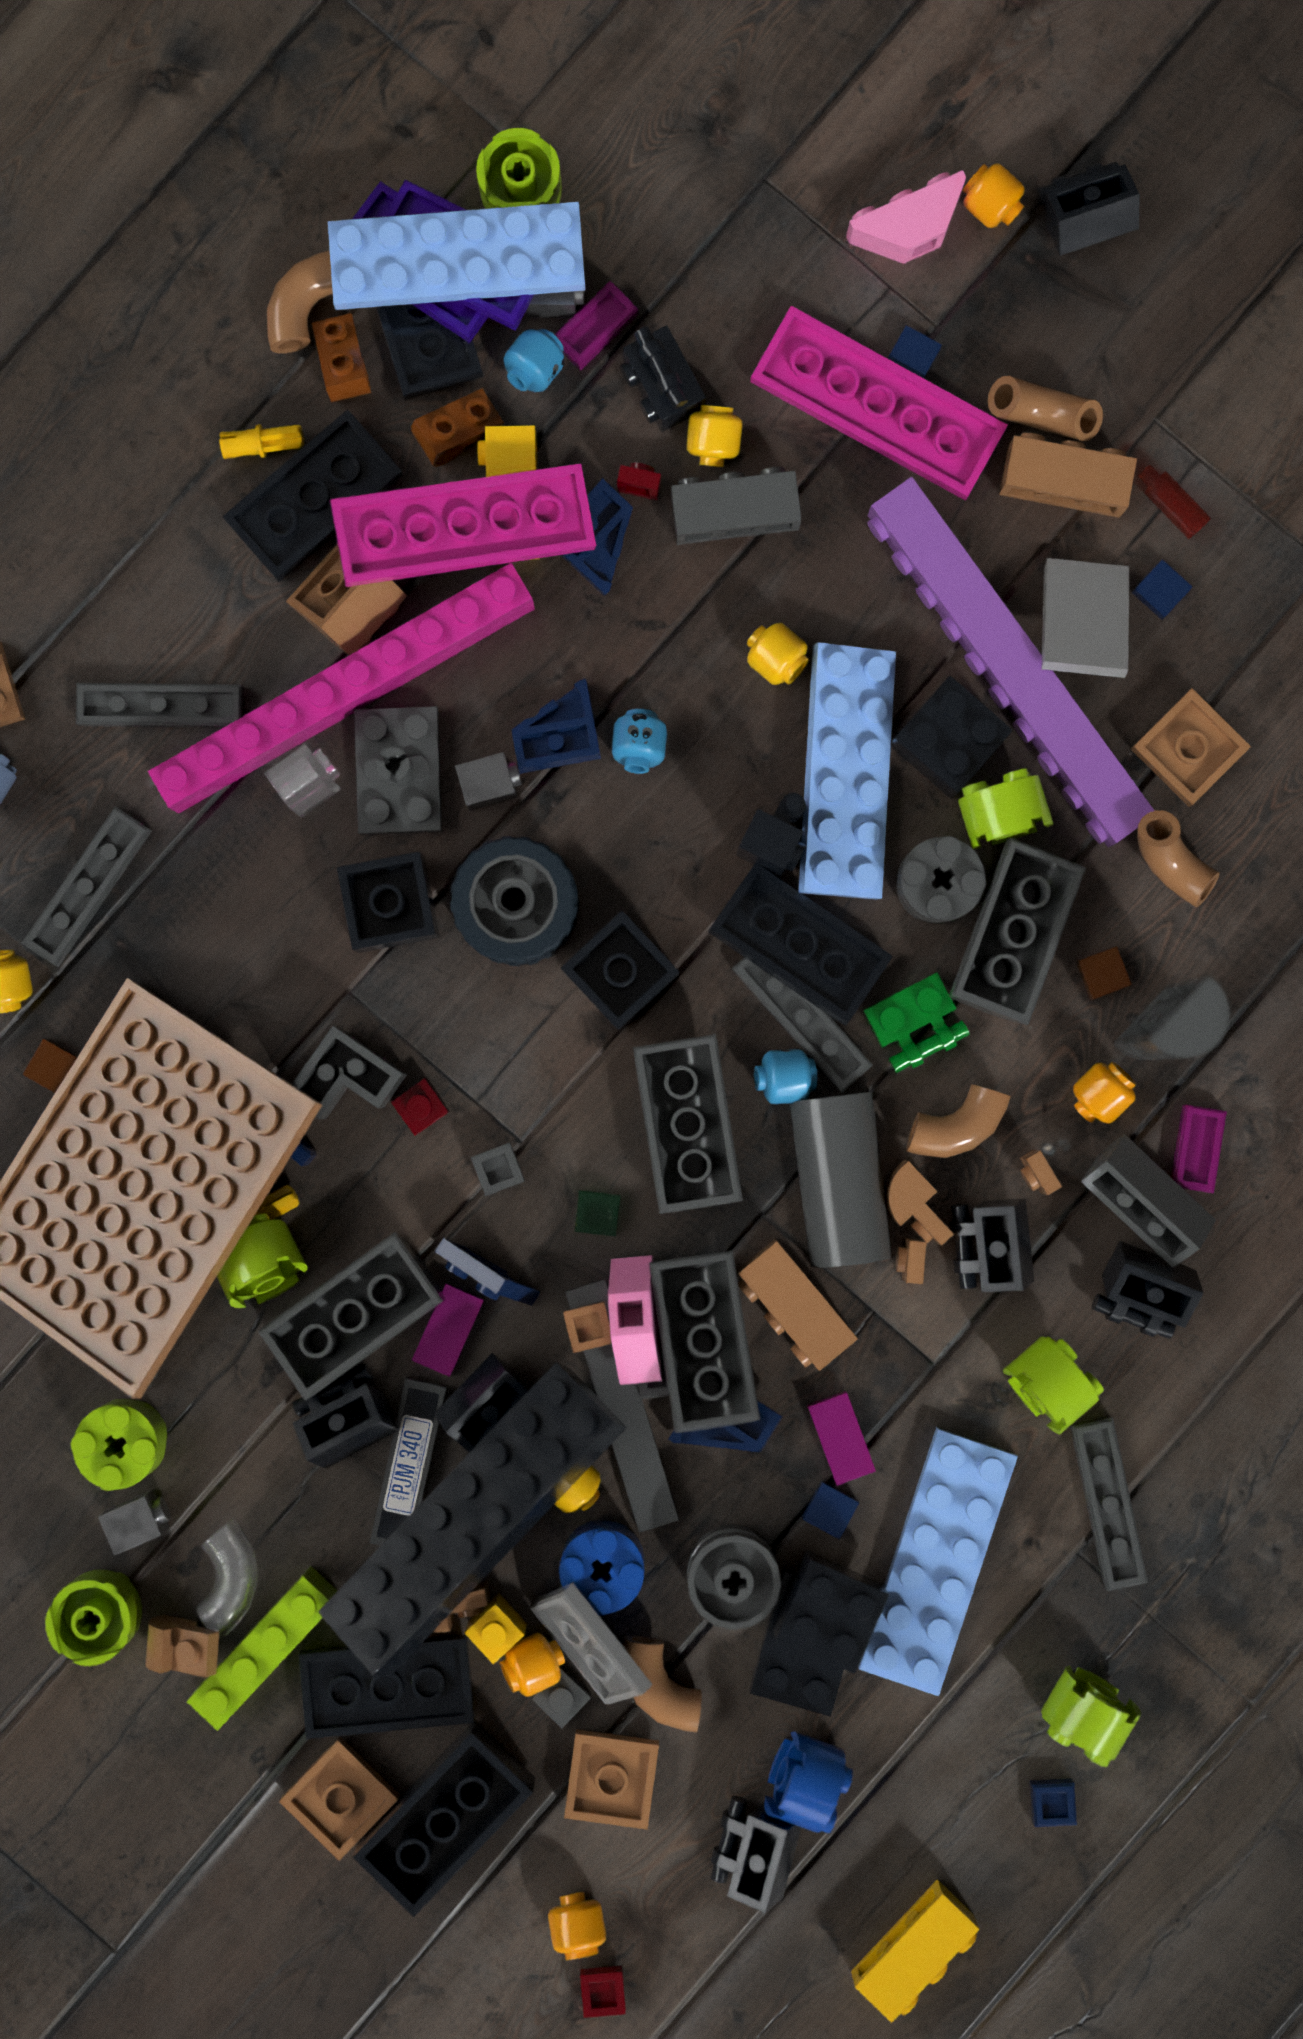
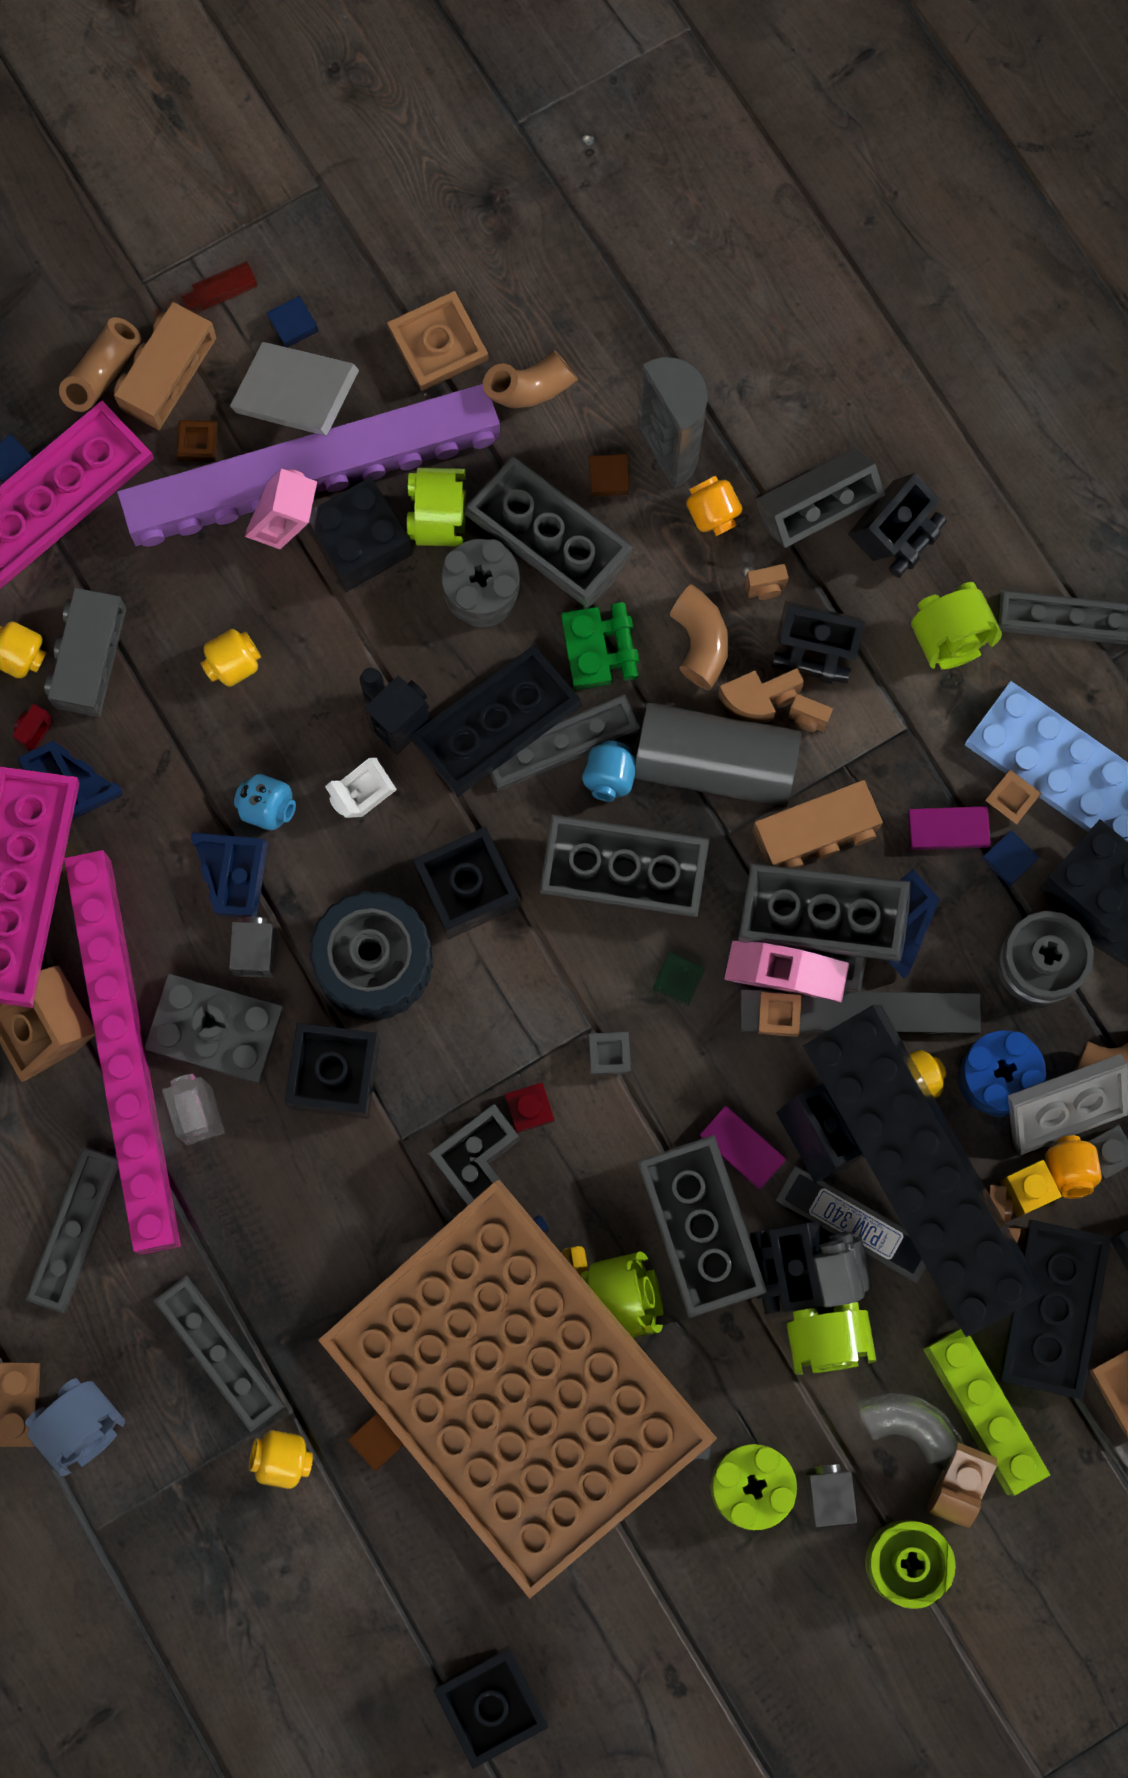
camera: 75 degrees left, 10 degrees down
(280, 1477) = (830, 1339): none -> lime brick
(349, 1468) = (842, 1270): none -> dark grey brick
(491, 1278) = (708, 1087): dark blue wing -> none
(683, 831) = (360, 789): none -> white bracket
(847, 771) = (355, 630): light blue plate -> none
(894, 1494) = (1013, 796): none -> medium nougat plate
(949, 651) = (282, 508): none -> bright pink slope
(999, 537) = (197, 440): none -> reddish brown tile
(1198, 1148) = (787, 445): magenta tile -> none

